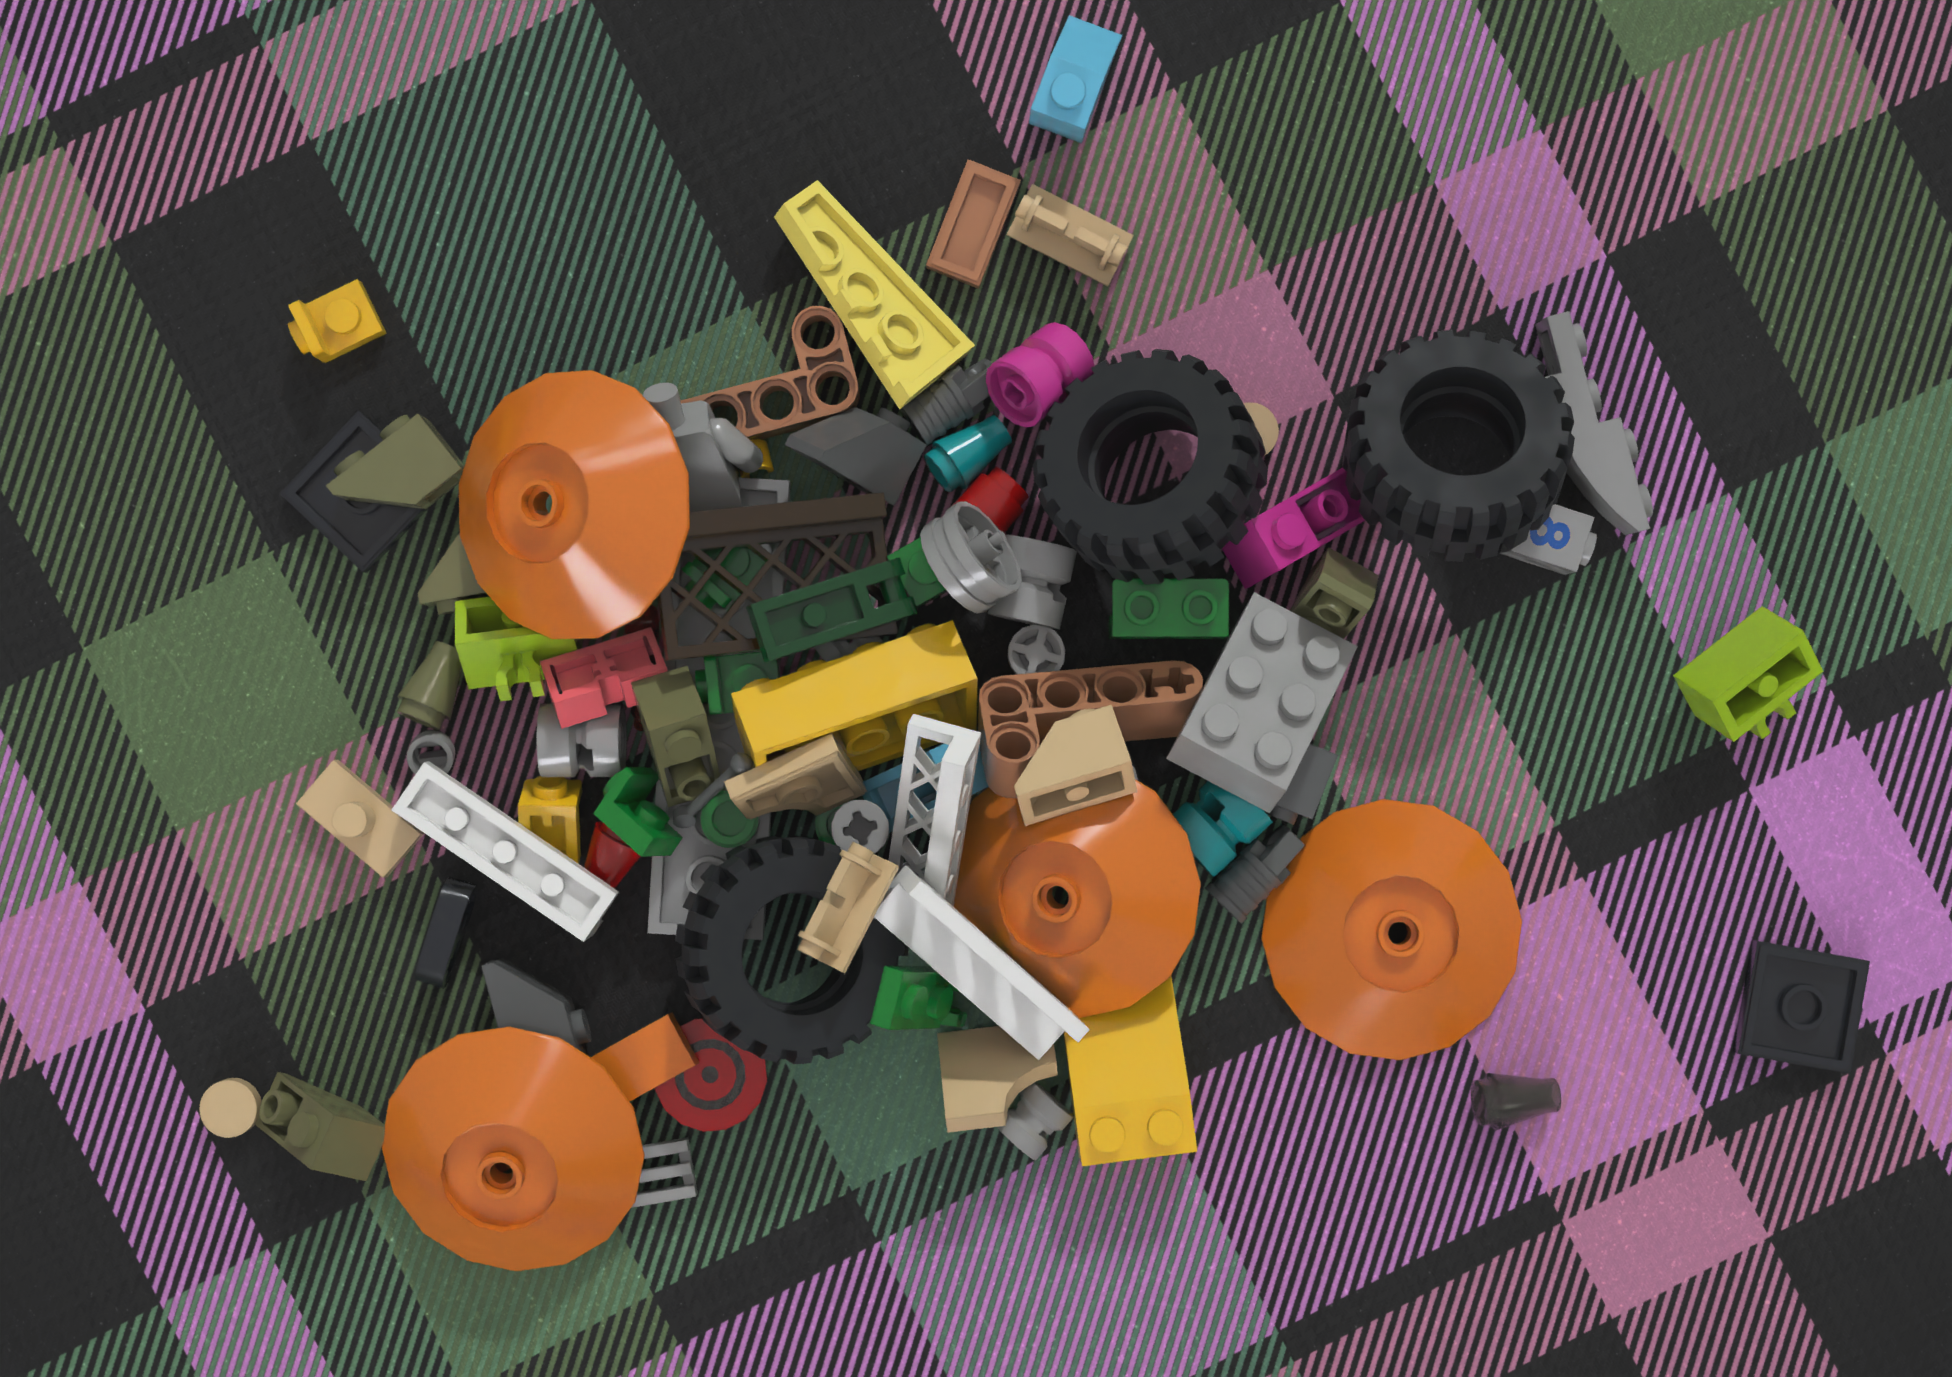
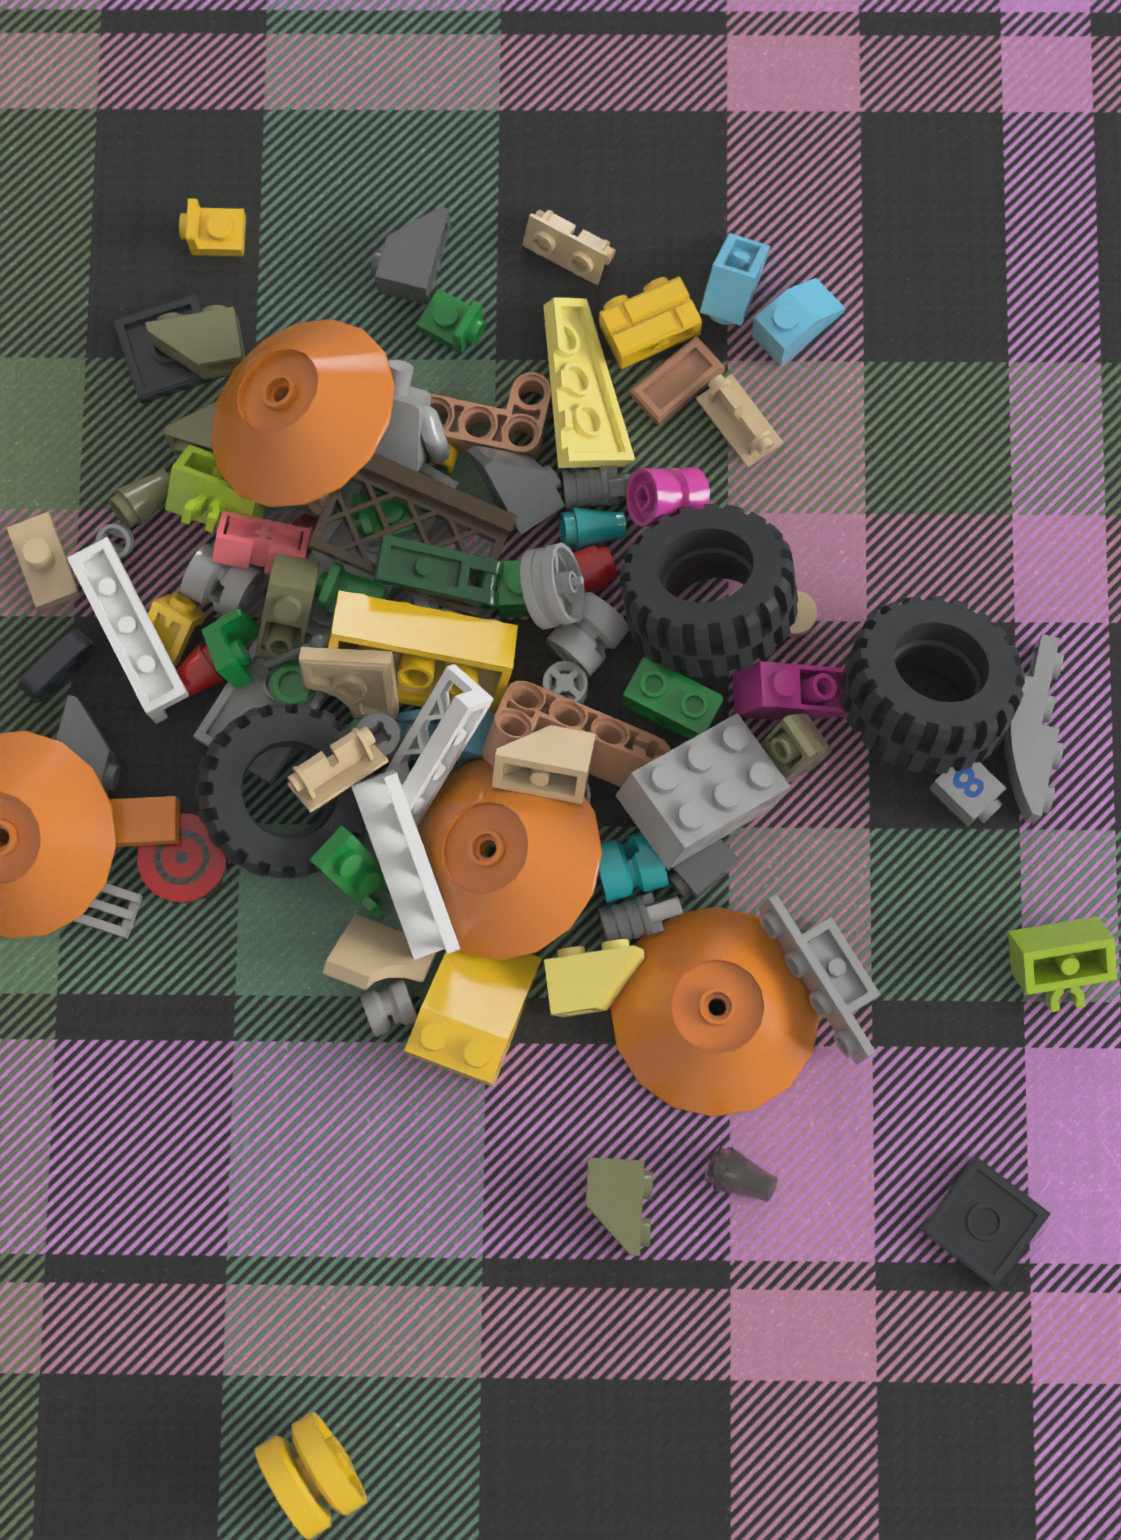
camera: 25 degrees right, 10 degrees down
(588, 237) = (412, 257): none -> dark grey slope
(675, 288) = (452, 321): none -> green bracket
(735, 127) = (553, 239): none -> tan hinge
(906, 170) = (649, 321): none -> yellow brick
(978, 67) = (734, 280): none -> medium azure slope
(1240, 976) = (591, 980): none -> light yellow slope
(1393, 1195) = (616, 1199): none -> olive slope
(1501, 824) = (829, 971): none -> light grey bracket

